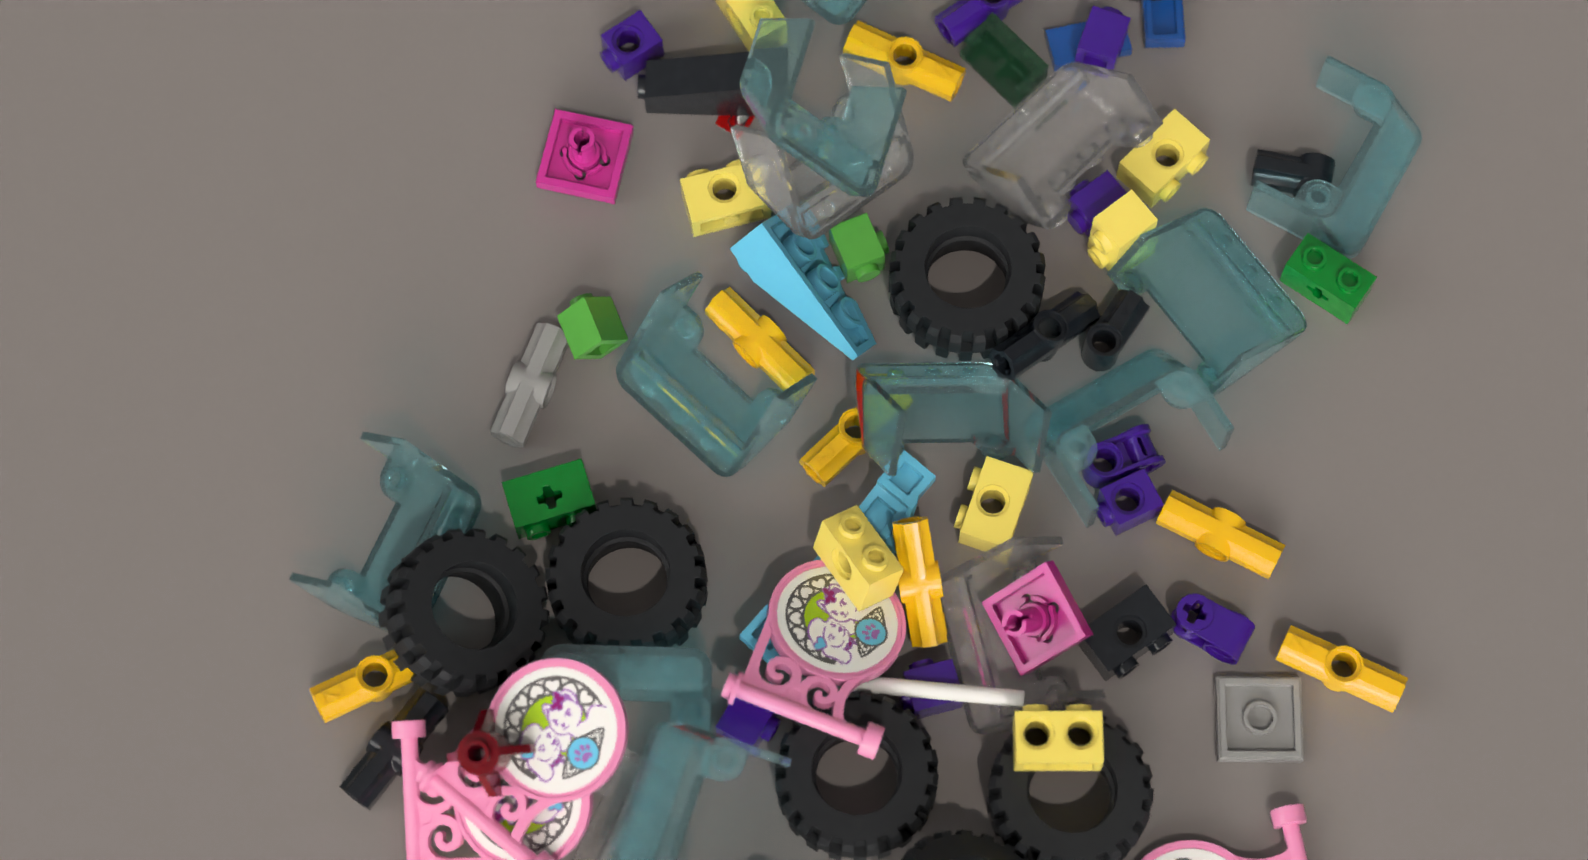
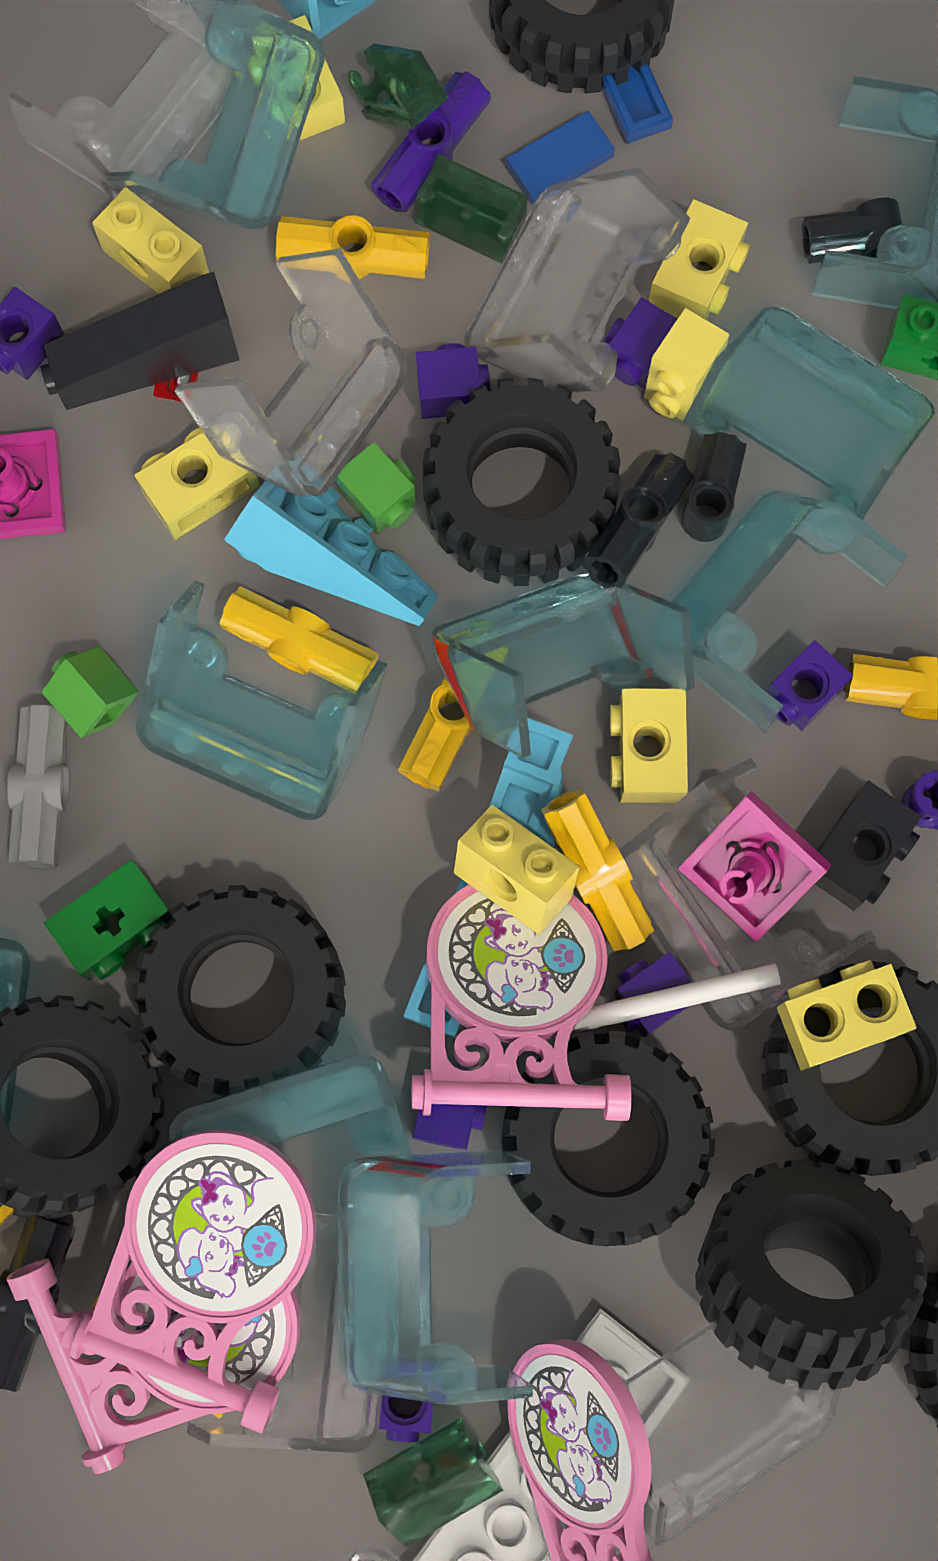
camera: 20 degrees left, 5 degrees up
(496, 753) = (141, 1291): dark red brick -> none
(842, 150) = (322, 374): clear light blue windscreen -> none
(940, 181) = (447, 377): none -> dark purple brick
(1103, 37) = (579, 141): dark purple brick -> none
(1126, 454) = (785, 631): dark purple piece -> none

